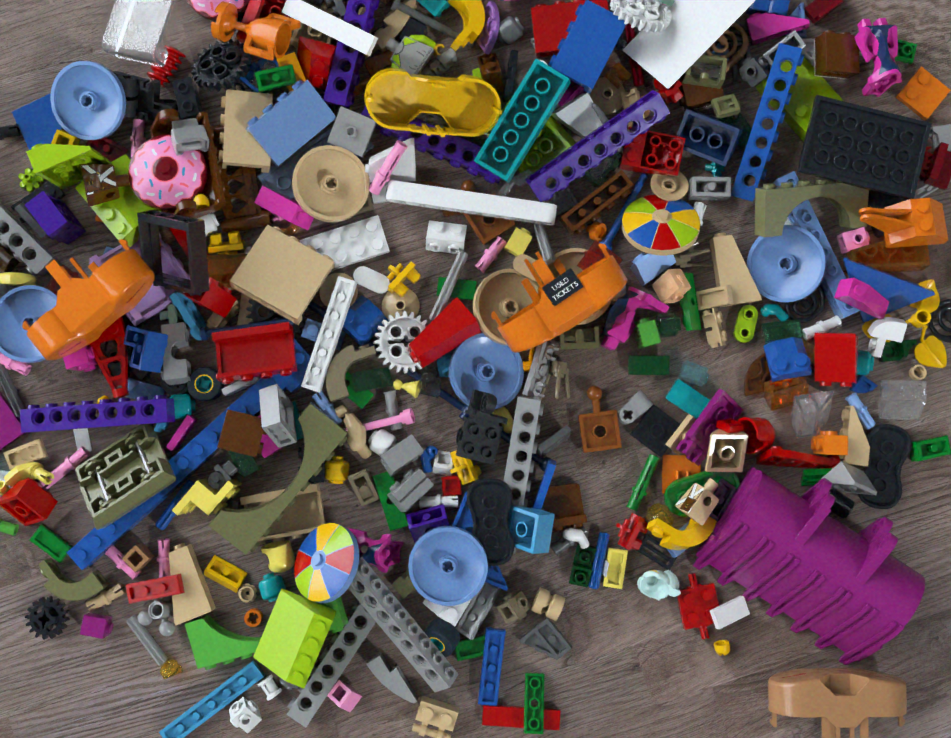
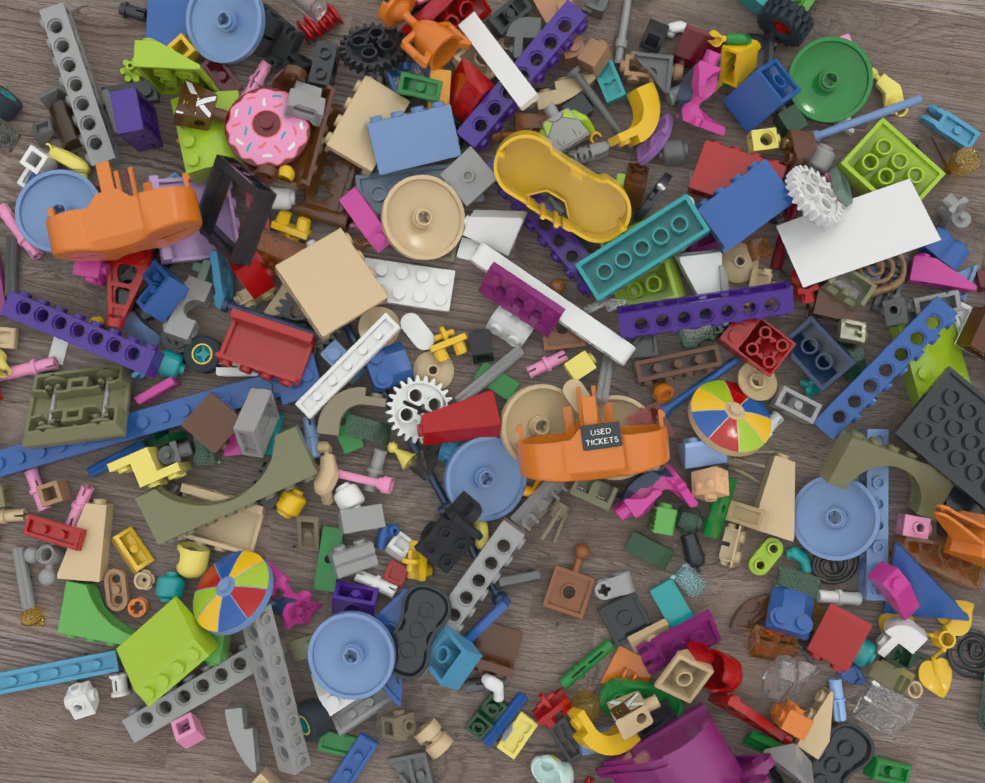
camera: 20 degrees right, 0 degrees up
(207, 468) = (164, 438): none -> dark green slope
(228, 611) = (114, 589): none -> medium nougat plate
(385, 171) = (480, 233): bright pink pin -> none
(430, 266) = (481, 346): none -> black brick
(435, 217) = (515, 289): none -> magenta plate
(684, 348) = (693, 551): none -> black piece
(894, 369) = (891, 676): none -> olive window

